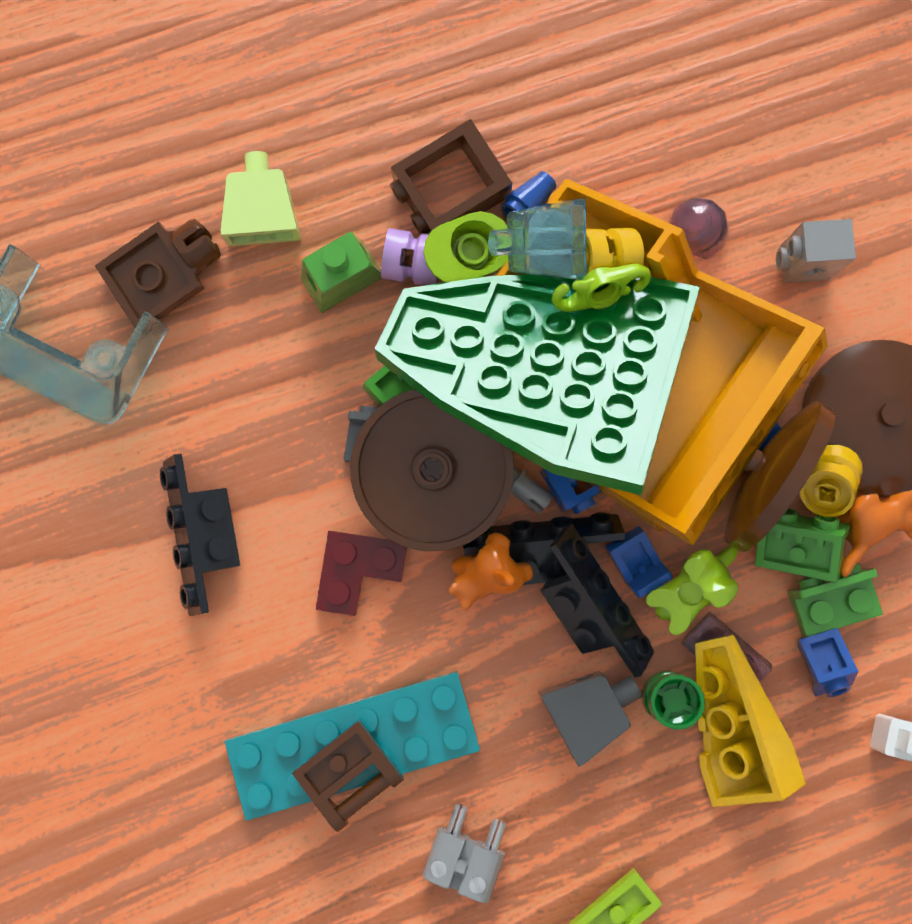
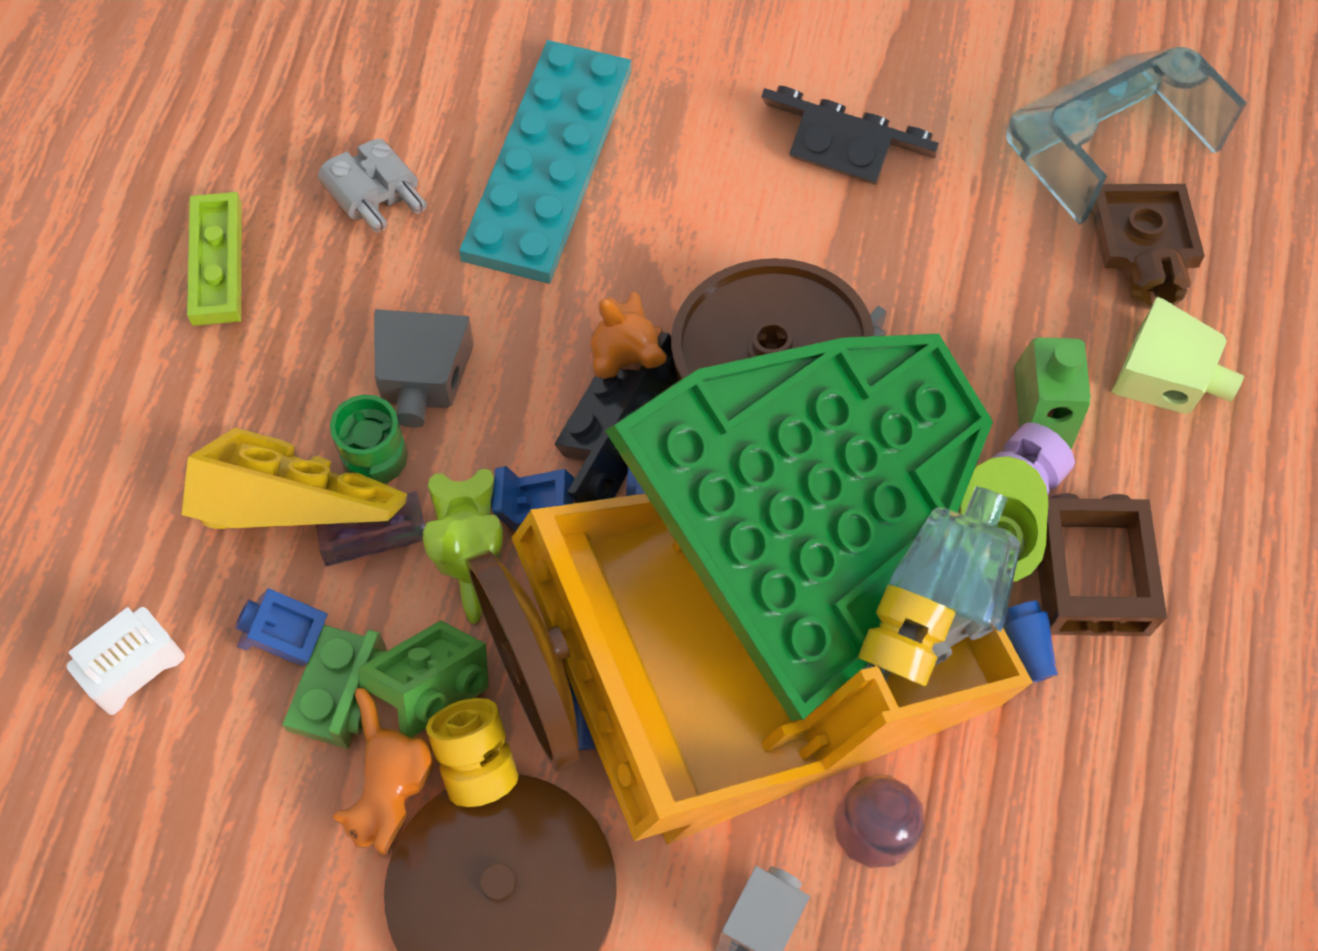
camera: 120 degrees right, 20 degrees down
(338, 765) = (540, 121): reddish brown plate -> none
(347, 561) = (719, 237): dark red plate -> none
(591, 605) = (519, 424): black bracket -> none
(616, 276) = (868, 594): lime piece -> none

